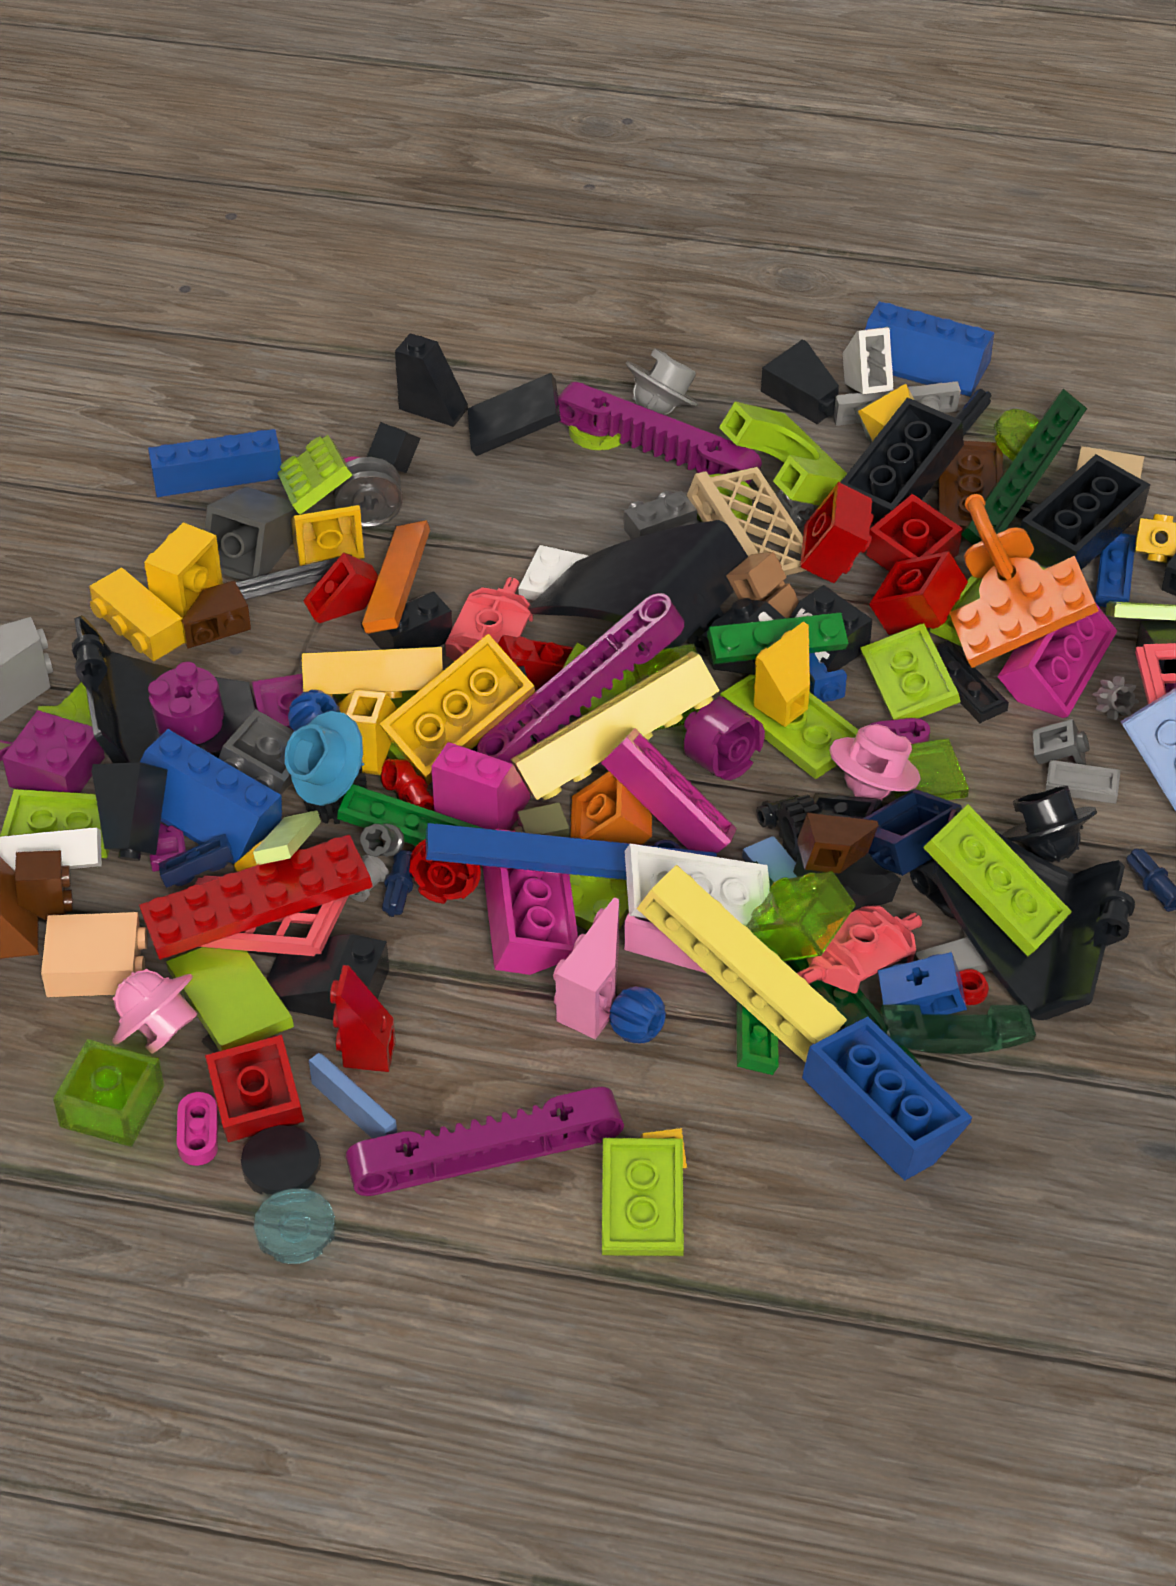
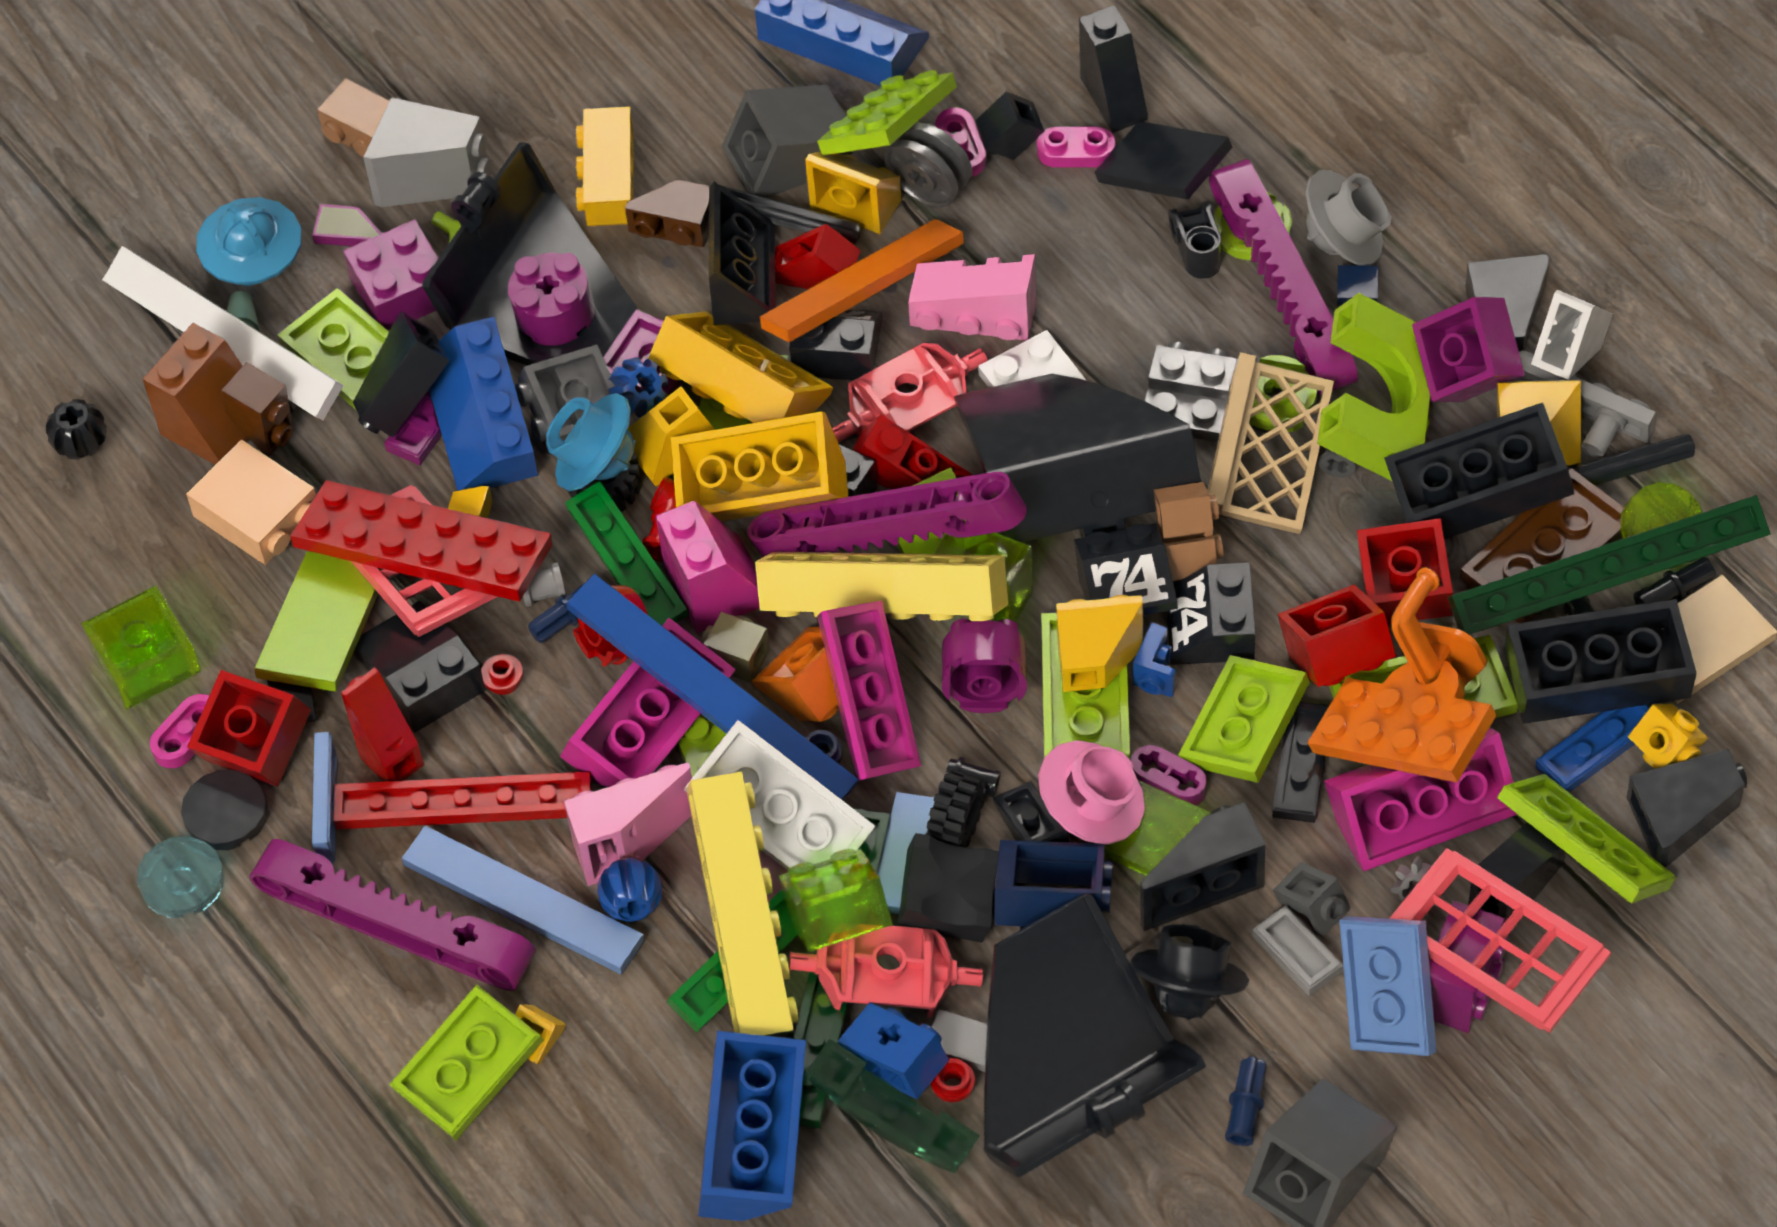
camera: 45 degrees right, 10 degrees up
(152, 1006) = (237, 590): bright pink helmet -> none
(184, 567) = (678, 145): yellow brick -> none
(207, 856) = (416, 468): dark blue plate -> none
(286, 837) = (501, 498): yellowish green tile -> none
(296, 614) = (739, 260): none -> black slope
(390, 833) = (568, 557): dark grey bush -> none
(399, 948) = (506, 682): none -> plate
(442, 443) = (1075, 146): none -> dark pink plate
(457, 1038) = (456, 800): none -> red plate
(479, 549) = (975, 299): none -> bright pink wedge
(562, 1074) = (523, 900): none -> medium blue tile
(579, 447) = (1197, 239): none -> black piece
(702, 418) = (1356, 280): none -> dark blue tile
(747, 640) = (1104, 578): green plate -> none
(821, 404) = (1468, 349): none -> magenta brick
(834, 841) = (946, 849): reddish brown slope -> none
(837, 533) = (1328, 513): red brick -> none
(933, 347) = (1681, 348): blue slope -> none
(993, 754) = (1207, 867): none -> black slope
(997, 880) = (1057, 993): lime plate -> none
(1062, 466) = (1676, 584): none -> black axle

